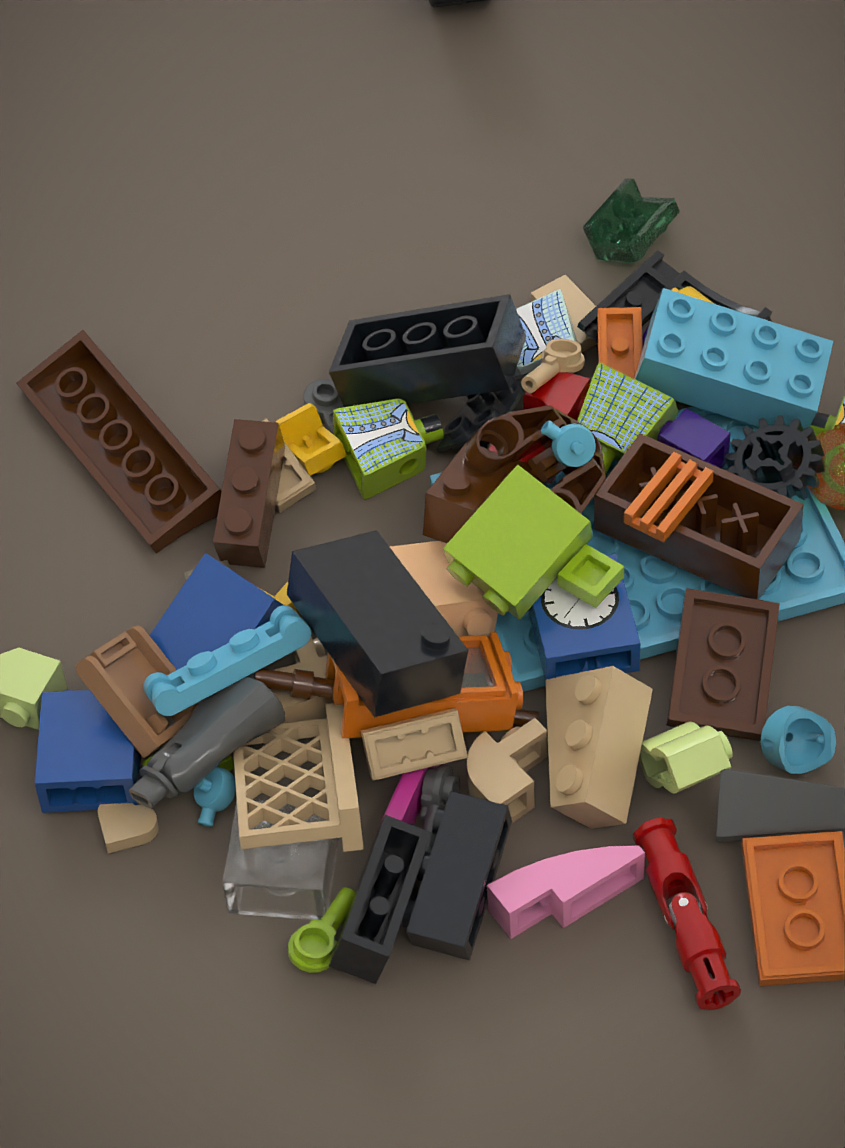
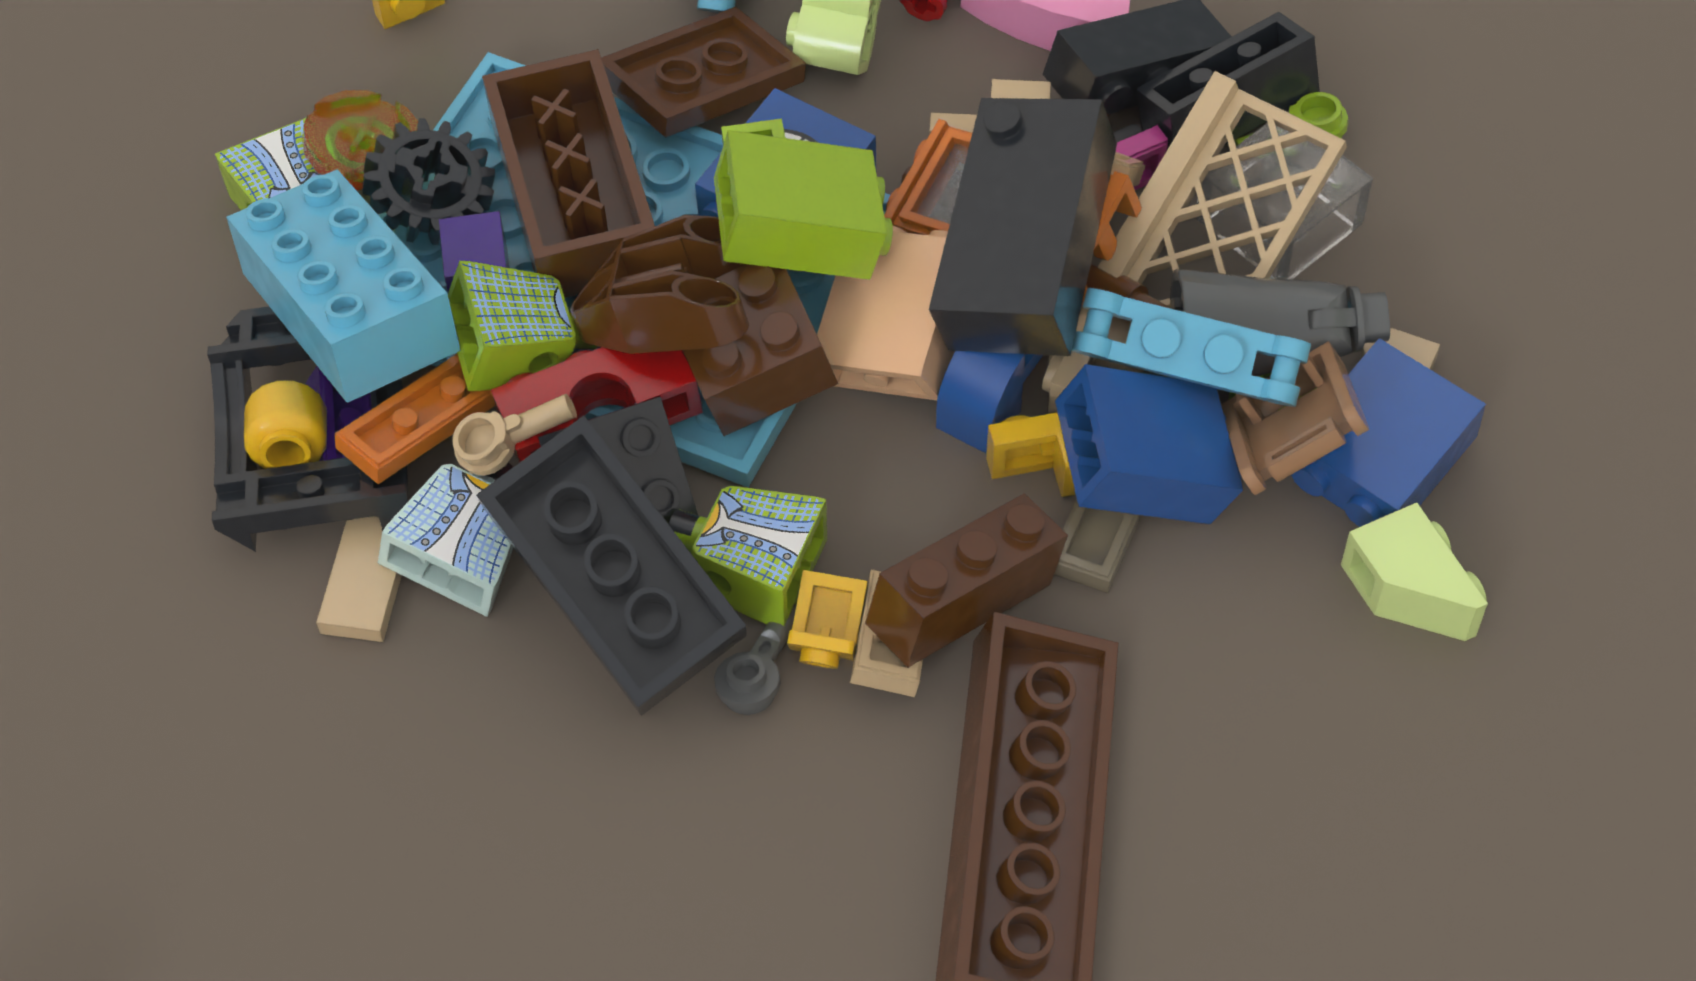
camera: 140 degrees left, 5 degrees up
(571, 444) = (633, 250): medium azure piece -> none
(595, 743) = (903, 74): tan wedge -> none
(628, 223) = (173, 616): clear green bracket -> none
(685, 472) = (596, 151): orange tile -> none

